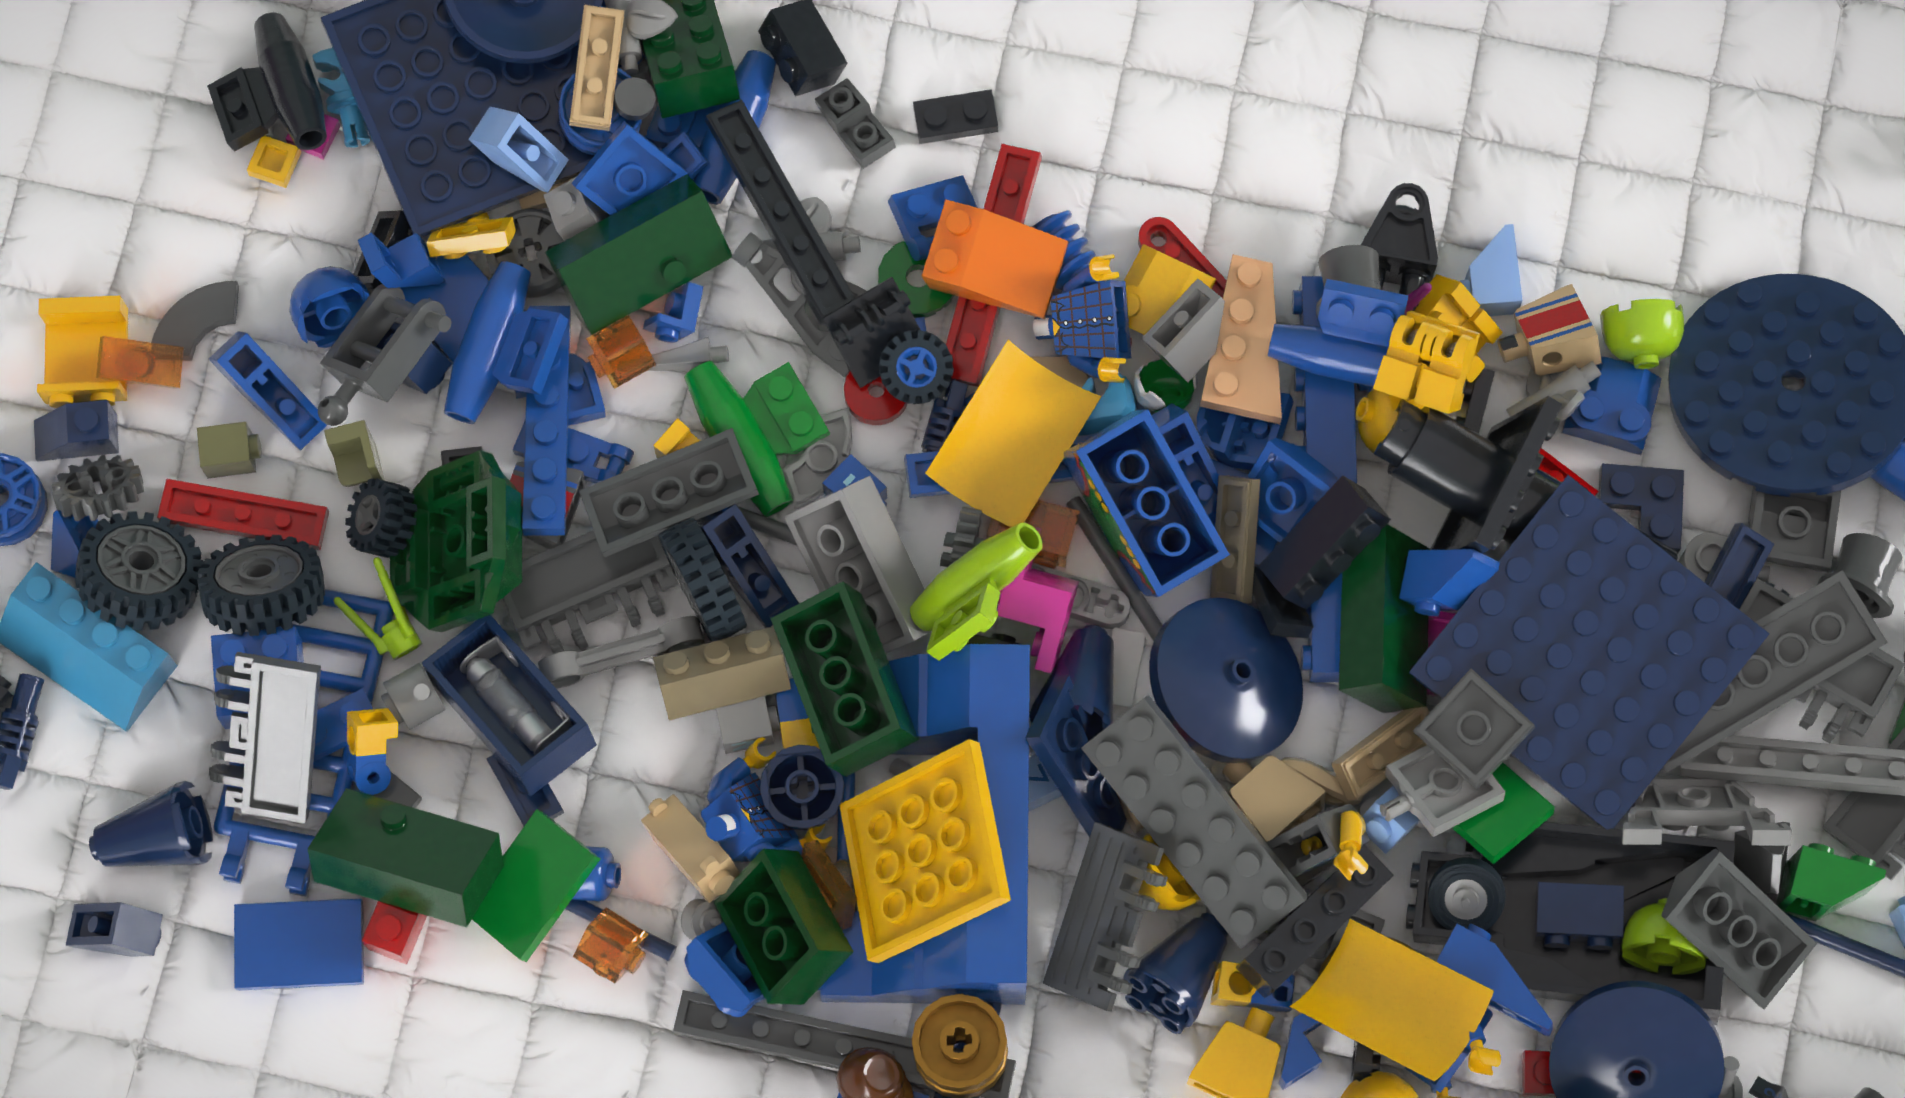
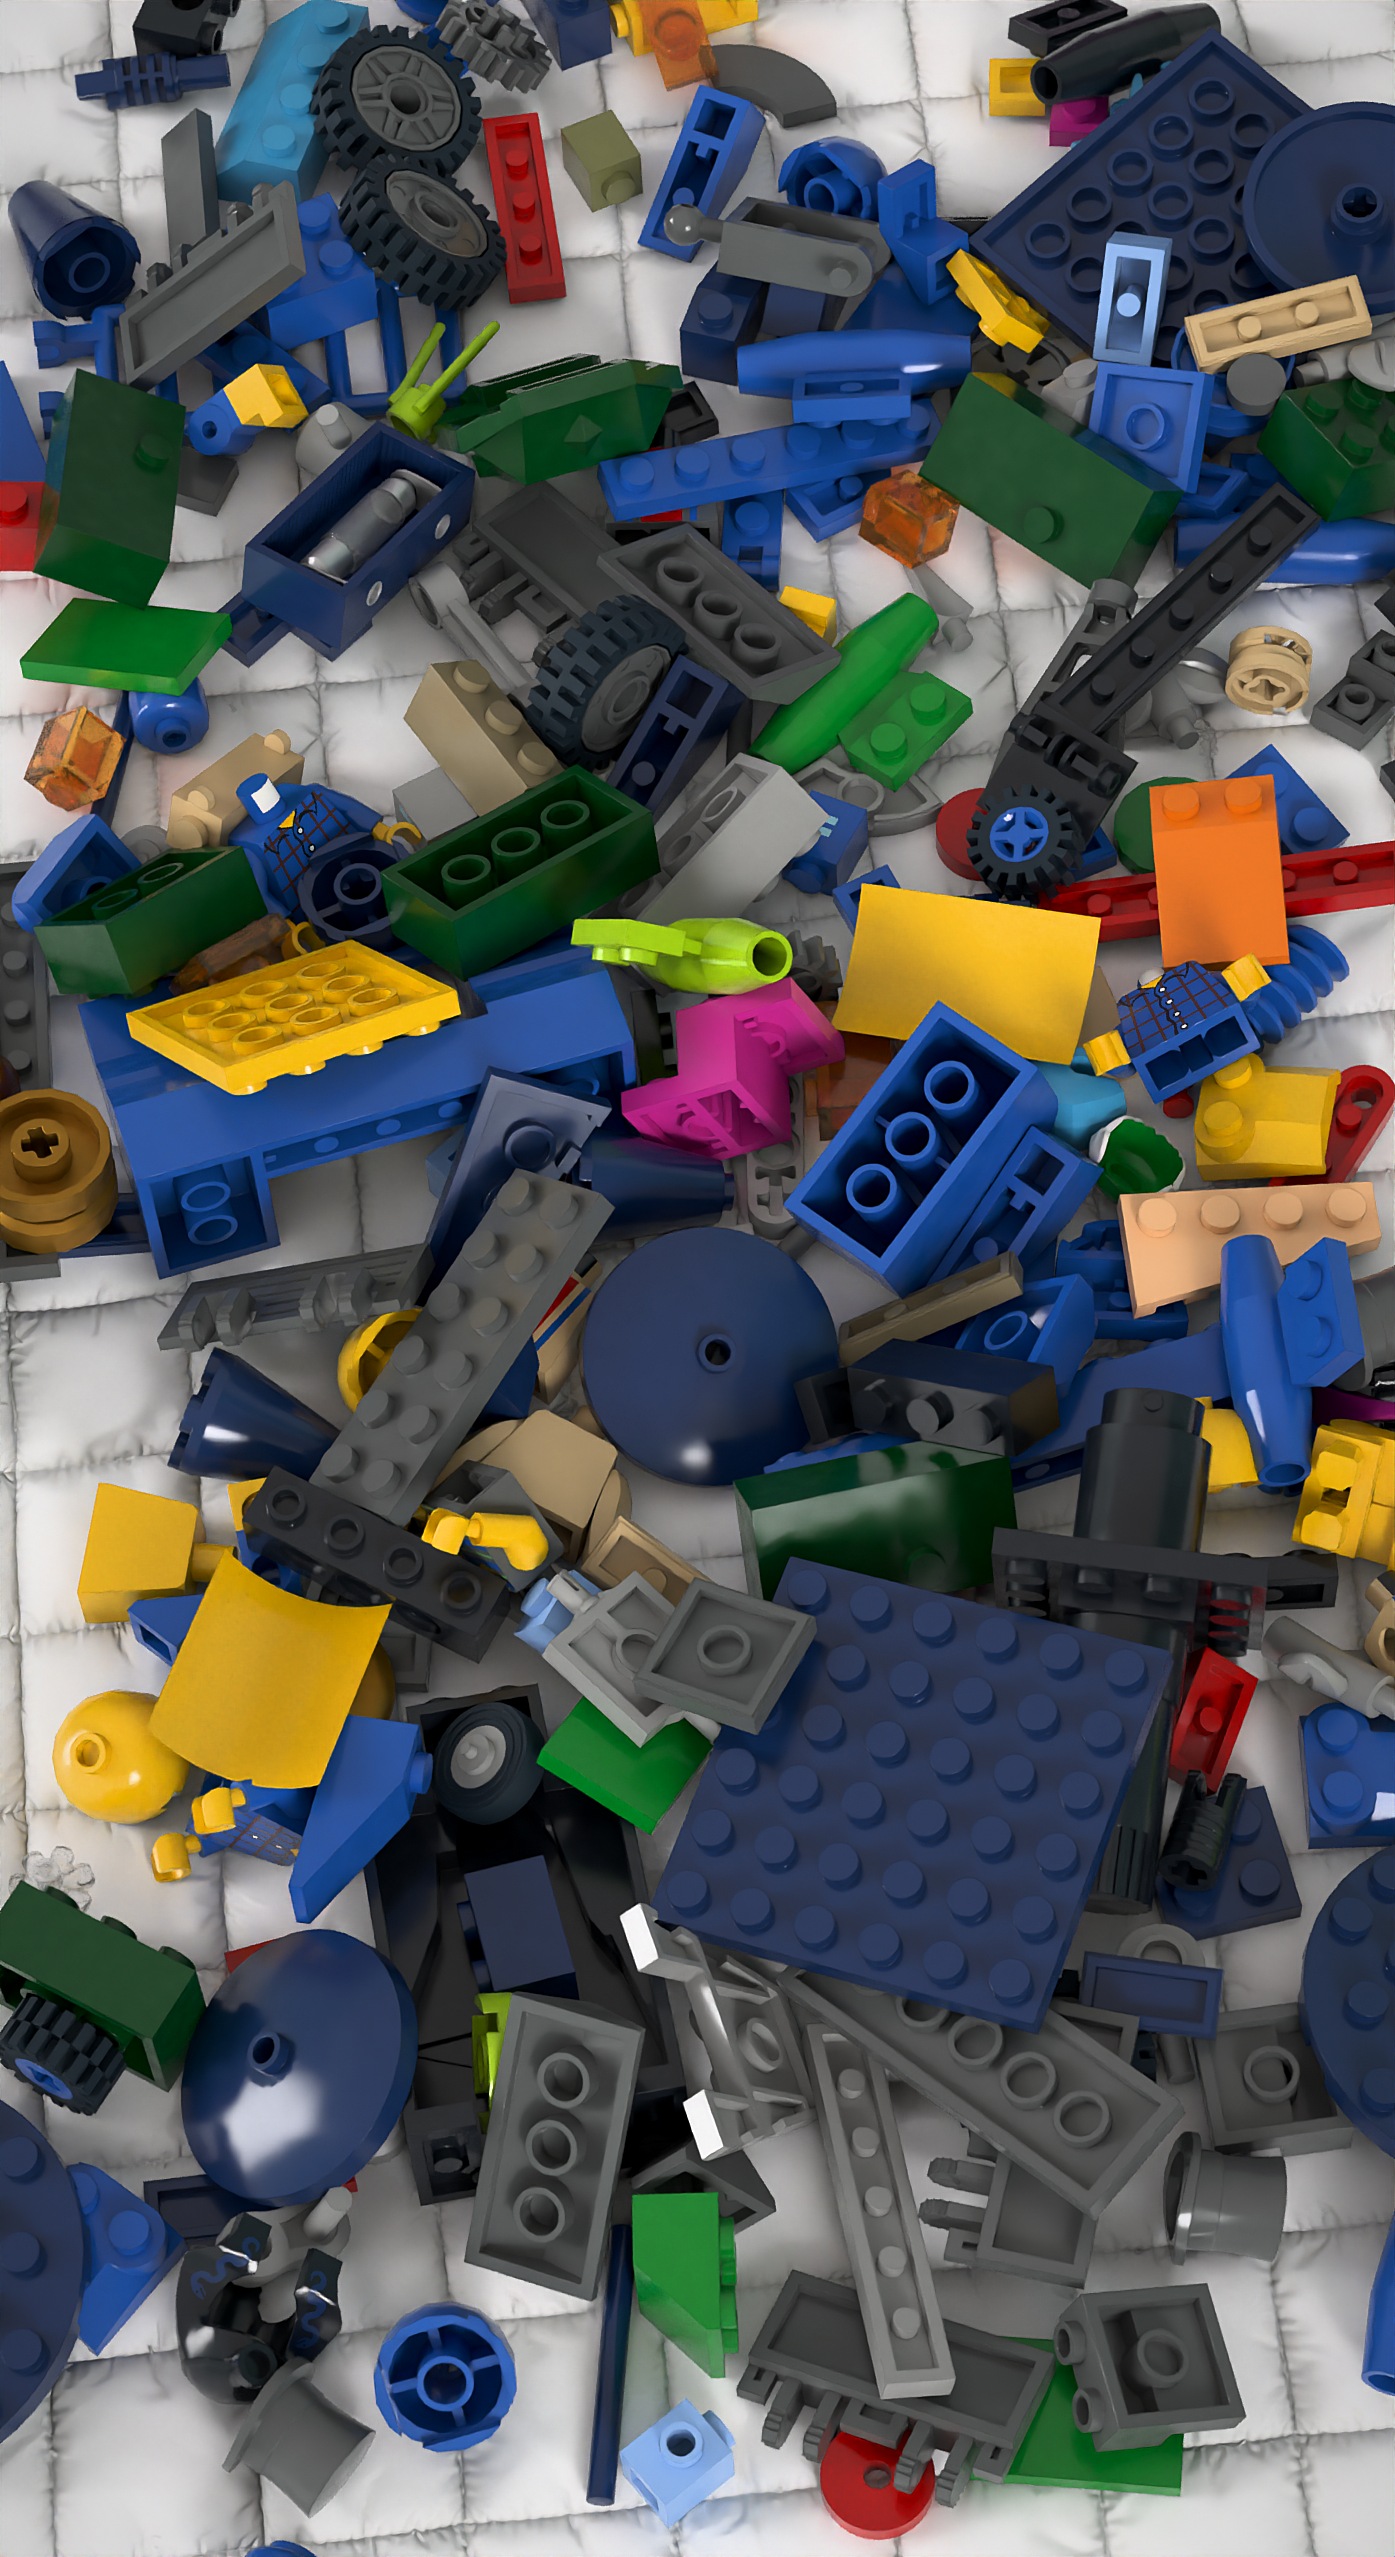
camera: 75 degrees right, 15 degrees down
(134, 733) = (190, 181): none -> dark grey tile
(354, 453) = (643, 282): olive panel -> none
(381, 518) = (566, 332): black wheel -> none
(404, 417) = (720, 319): none -> dark blue slope
(681, 314) = (1000, 570): blue bracket -> none
(828, 176) = (1267, 673): none -> tan wheel
(1188, 330) = (1205, 1135): light grey slope -> none
(1432, 384) = (1273, 1415): yellow hips -> none
(1444, 578) = (948, 1554): blue slope -> none
(1638, 506) = (1201, 1832): none -> black hinge
(1844, 1037) = (445, 2376): none -> blue cylinder

